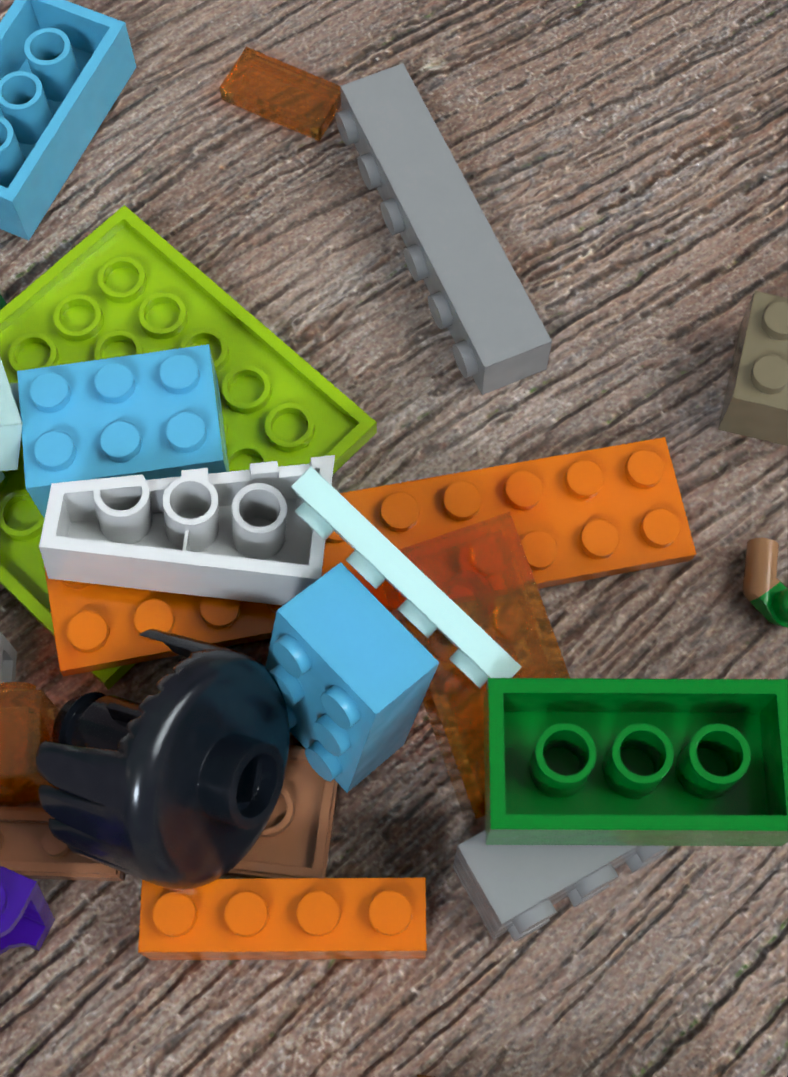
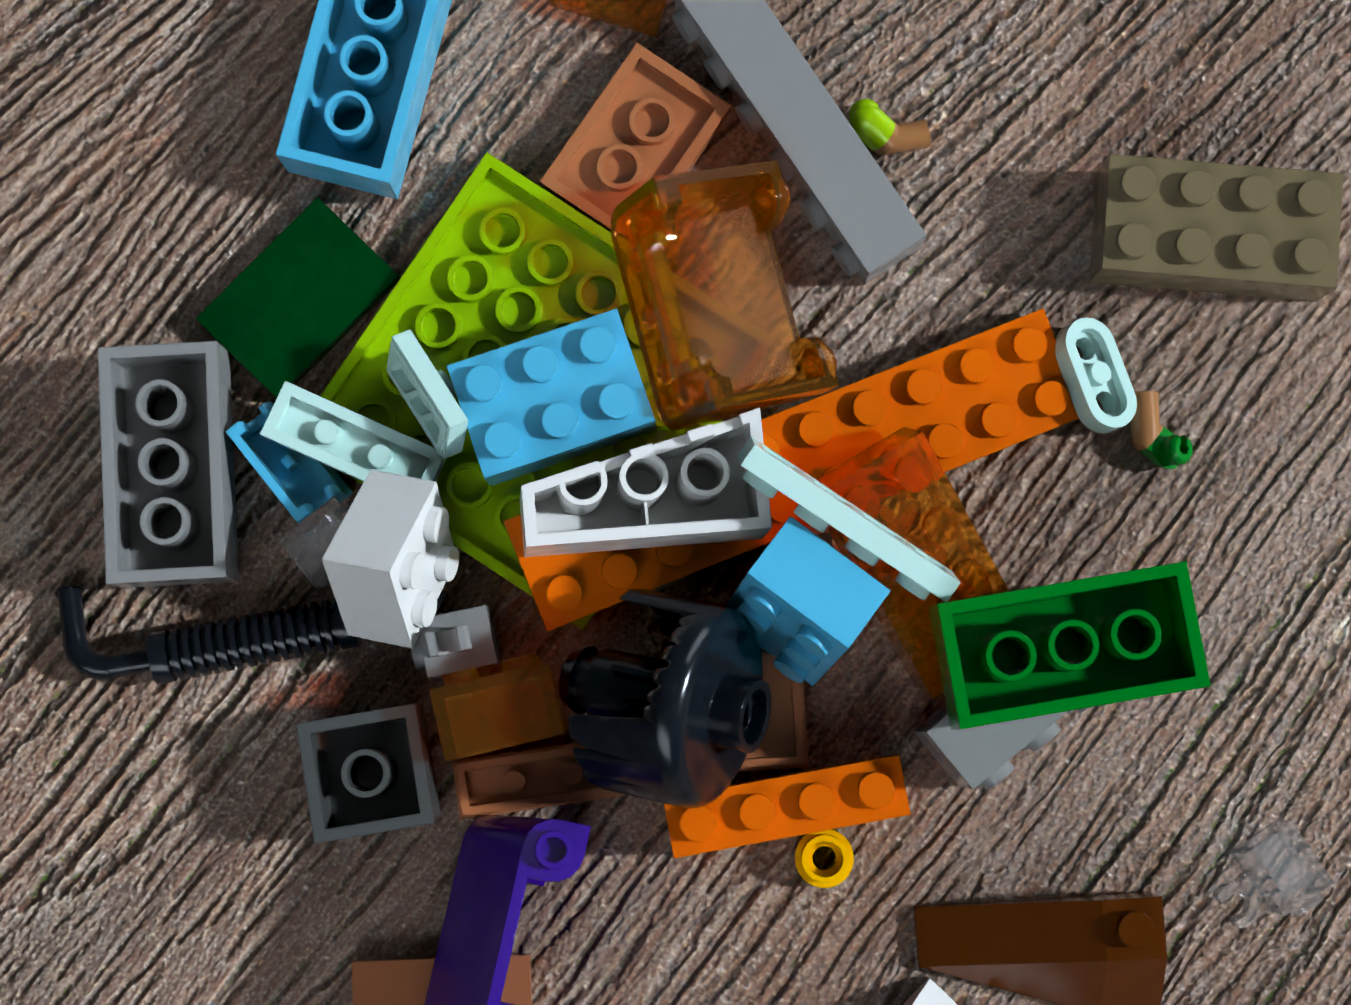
camera: 10 degrees left, 15 degrees up
(275, 225) = (639, 128): none -> nougat plate
(298, 990) = (837, 871): none -> yellow plate
(320, 351) = (714, 295): none -> clear orange windscreen
(527, 254) = (882, 133): none -> arm
(716, 520) = (1096, 376): none -> light aqua plate

